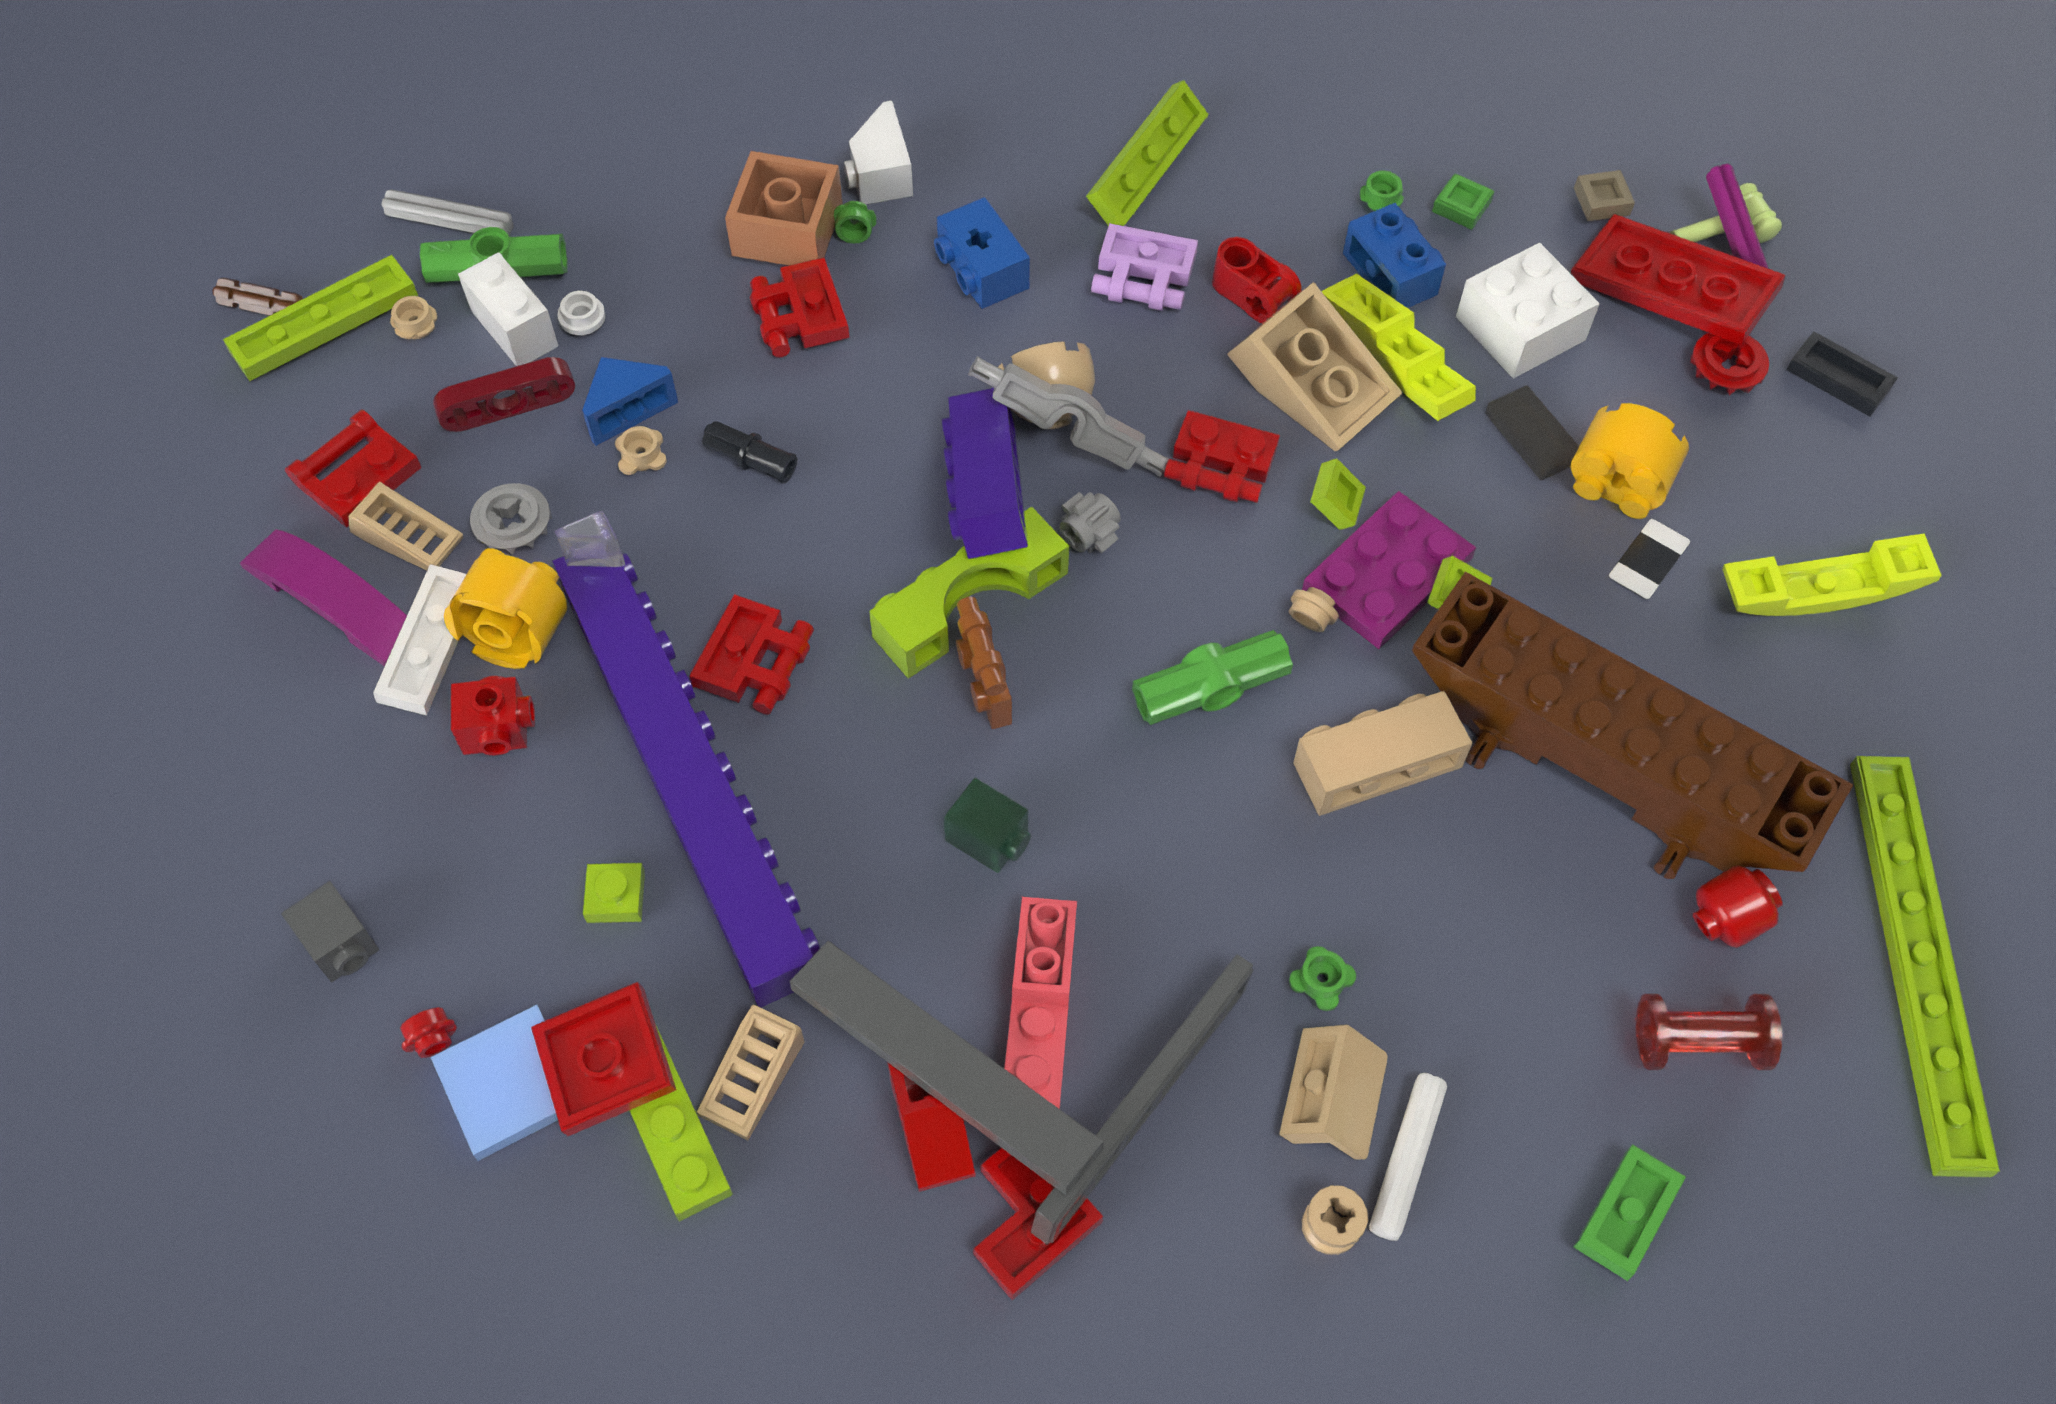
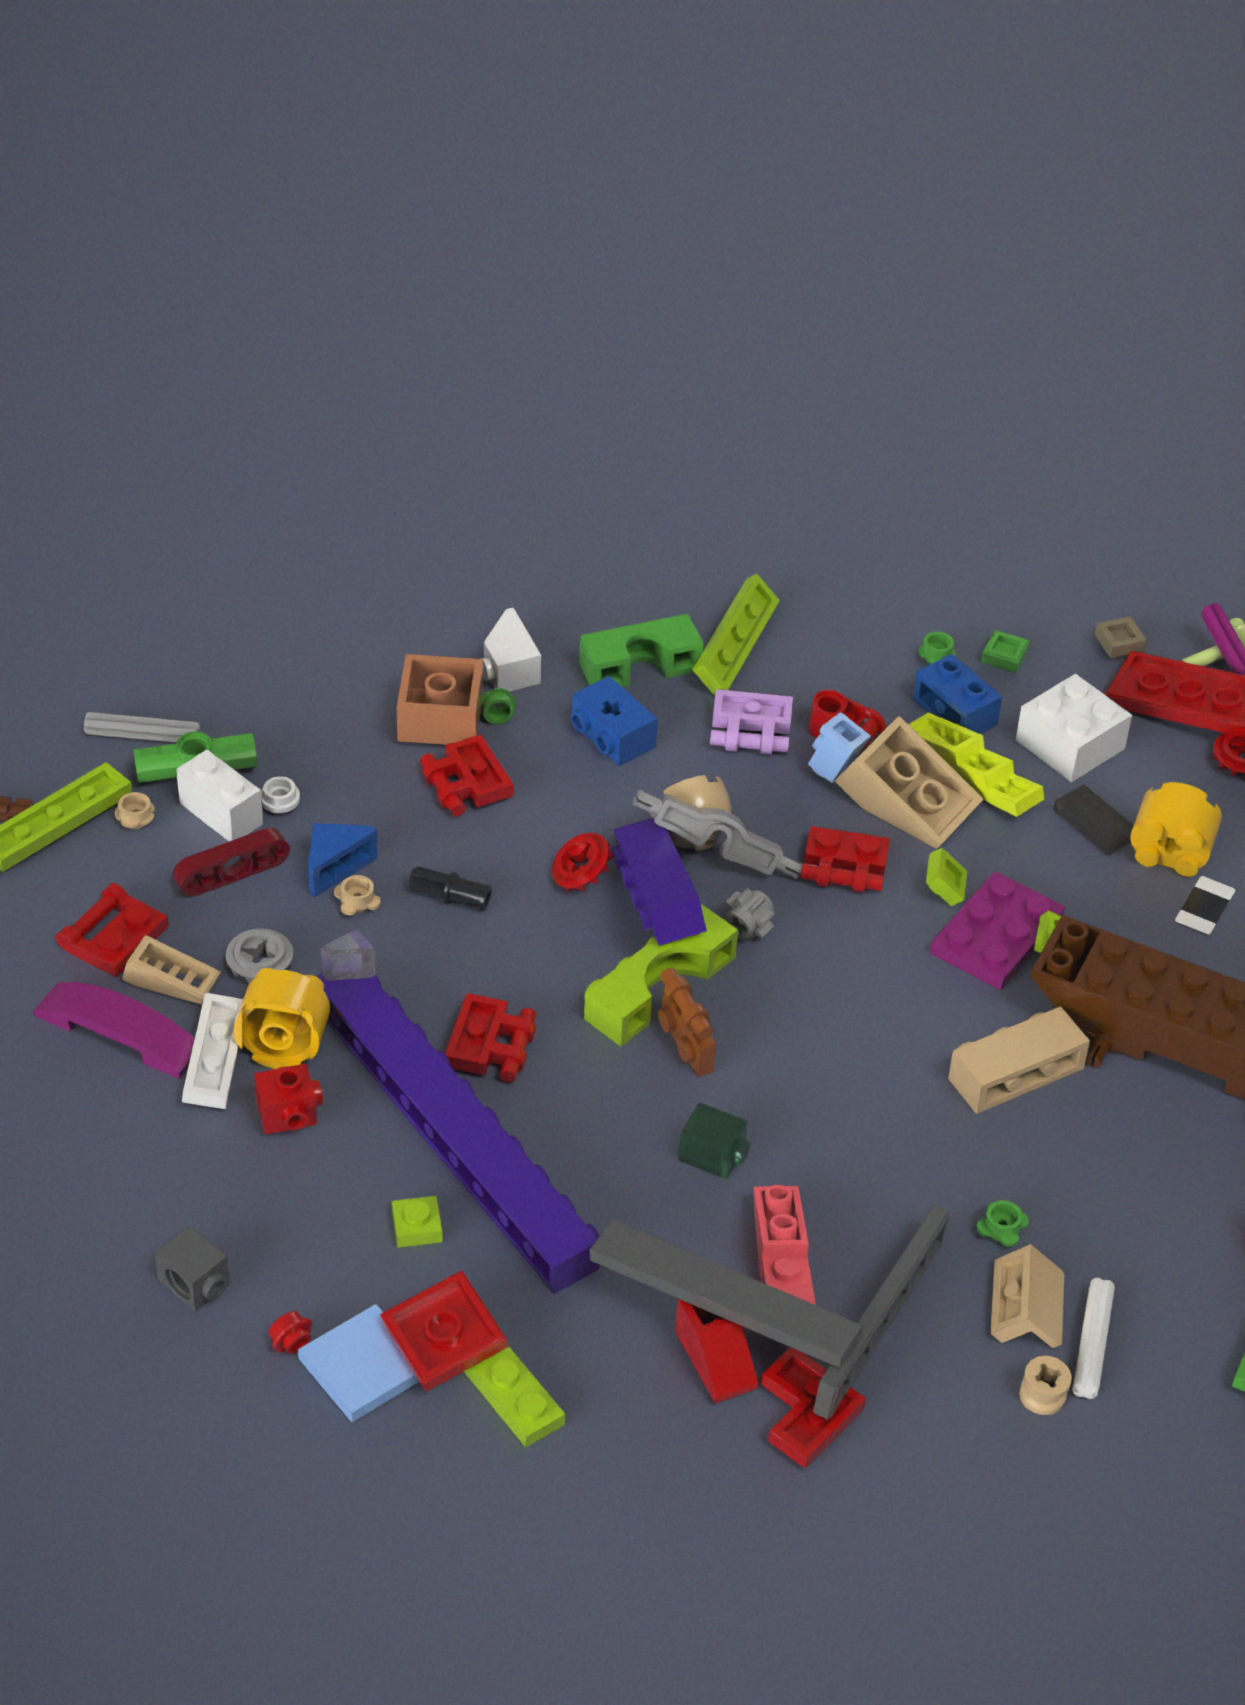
camera: 10 degrees left, 15 degrees down
(744, 1042) = (571, 1305): tan slope -> none
(911, 416) = (577, 850): none -> red gear
(1062, 157) = (666, 642): none -> bright green arch
(1212, 677) = (871, 1018): bright green piece -> none
(1236, 311) = (837, 747): none -> light blue brick
(1313, 609) = (943, 962): tan plate -> none

